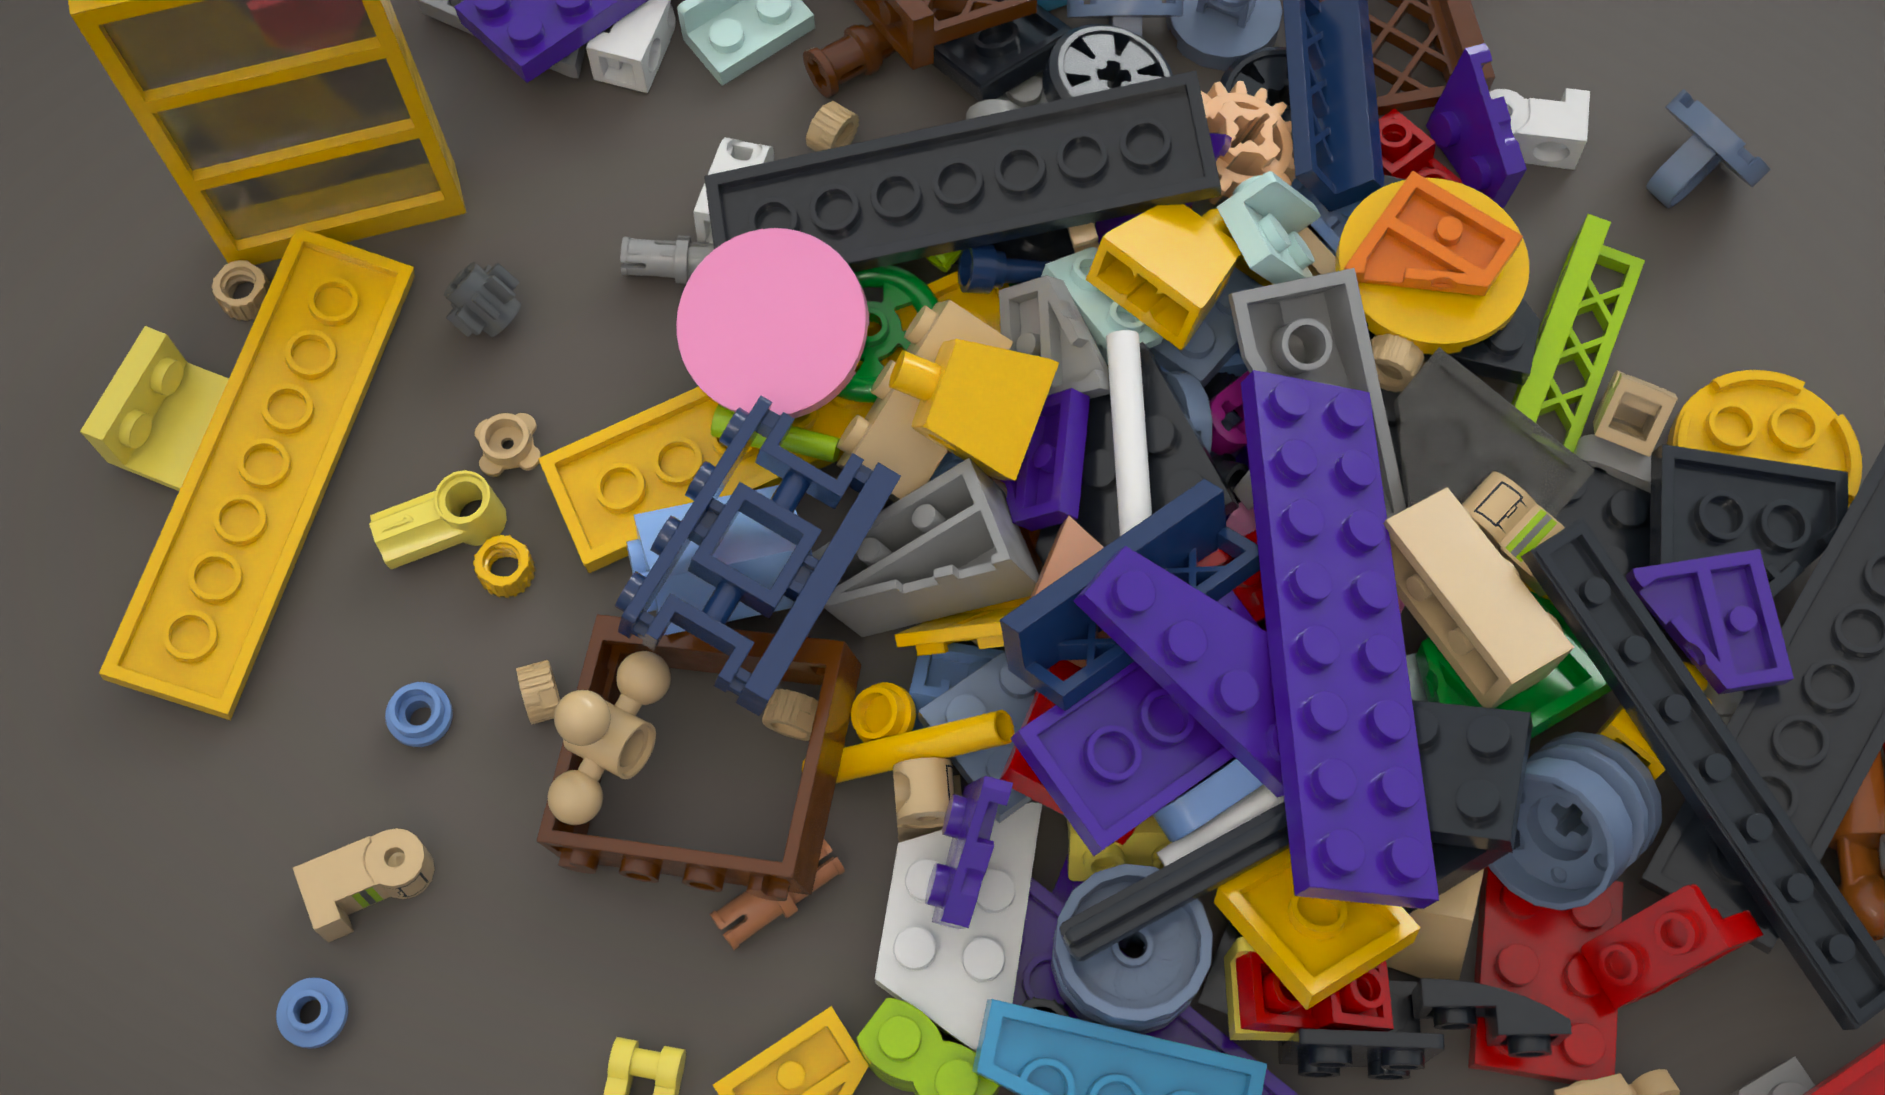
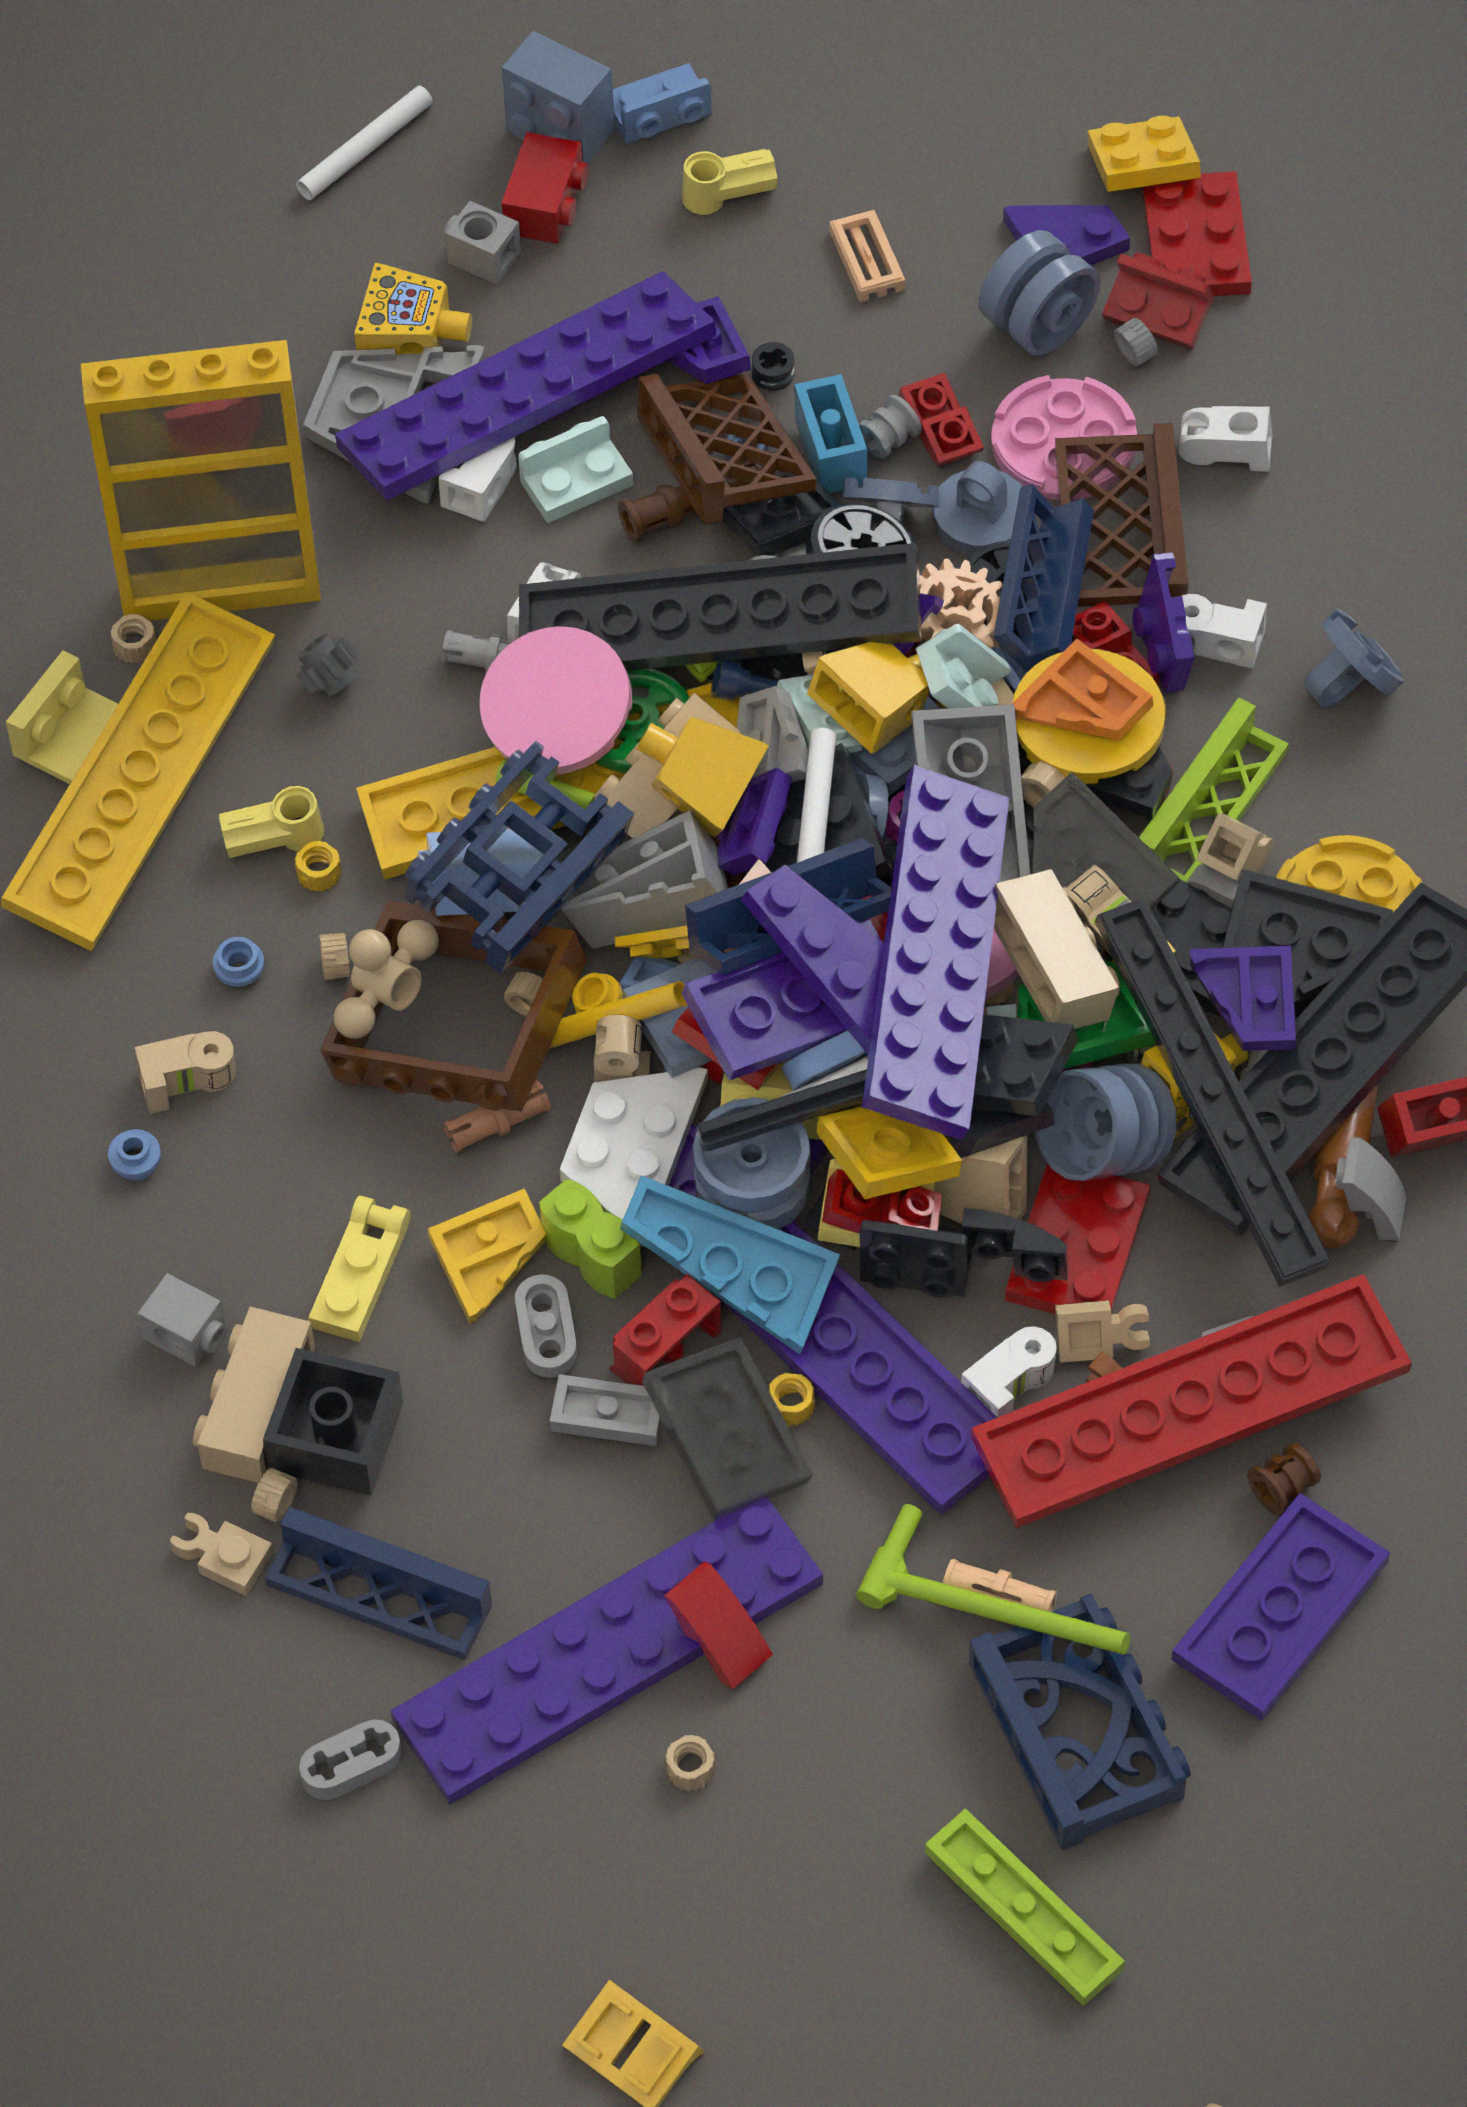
camera: 10 degrees right, 10 degrees down
(501, 428) = (332, 765): tan plate -> none
(832, 127) = (632, 559): tan axle -> none
(969, 822) = (644, 1063): dark purple wing -> none
(1665, 945) = (1160, 1217): red bracket -> none

